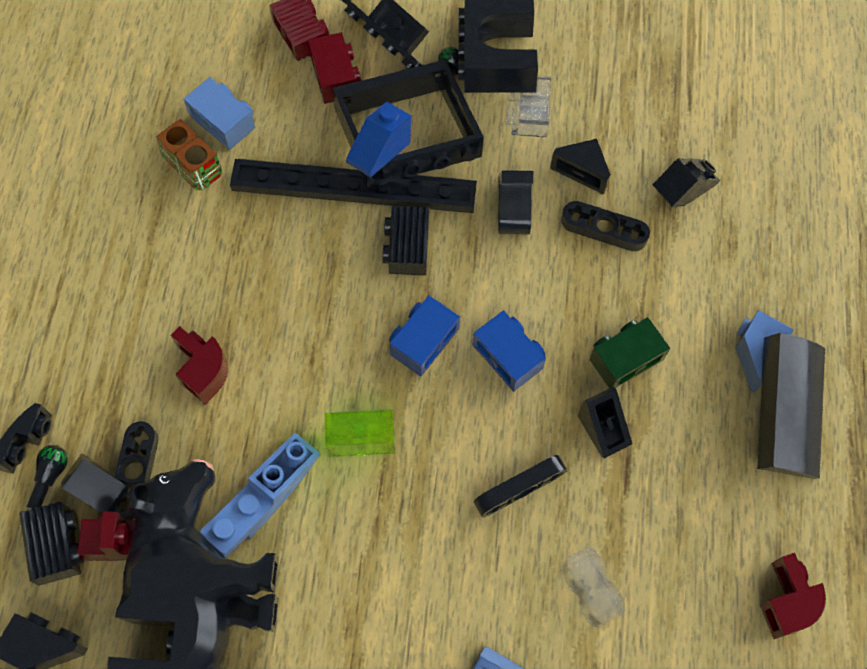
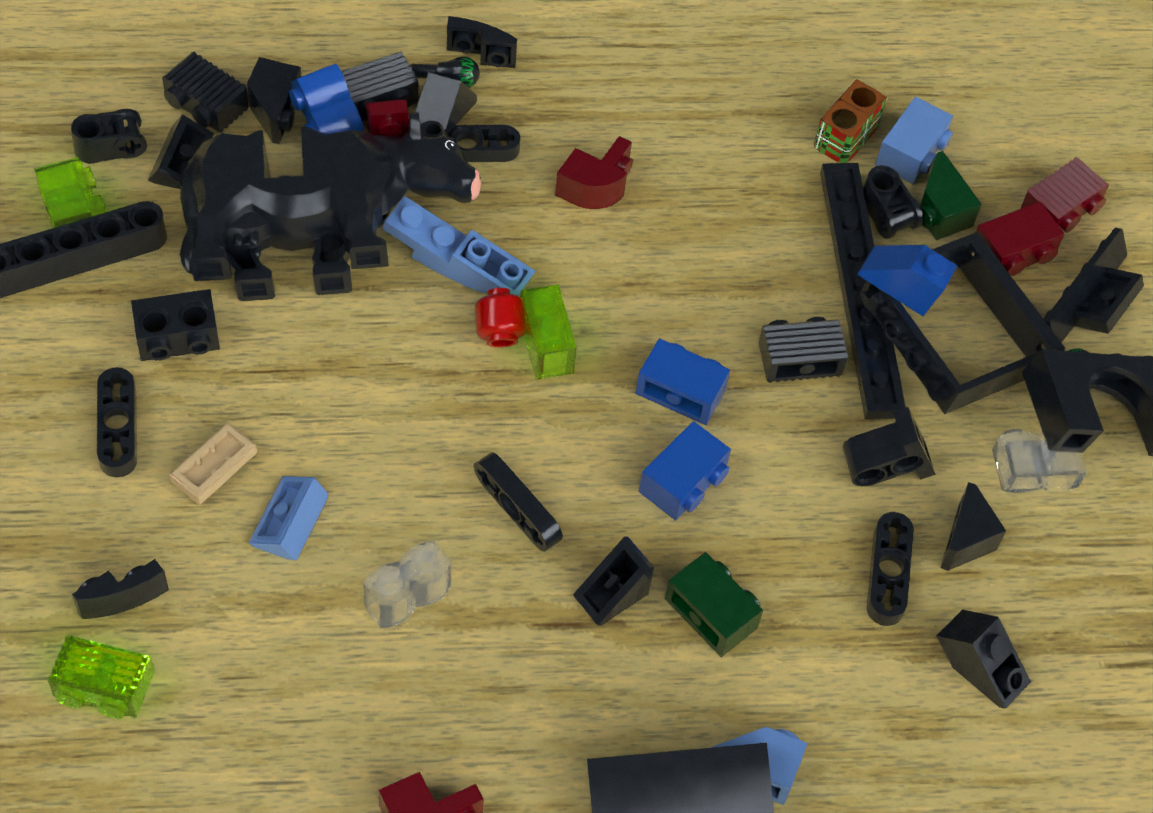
camera: 75 degrees right, 10 degrees down
(70, 593) = (325, 101): none -> blue brick
(279, 145) = (890, 202): none -> black piece
(281, 106) = (947, 200): none -> dark green slope
(339, 470) = (500, 318): none -> red head

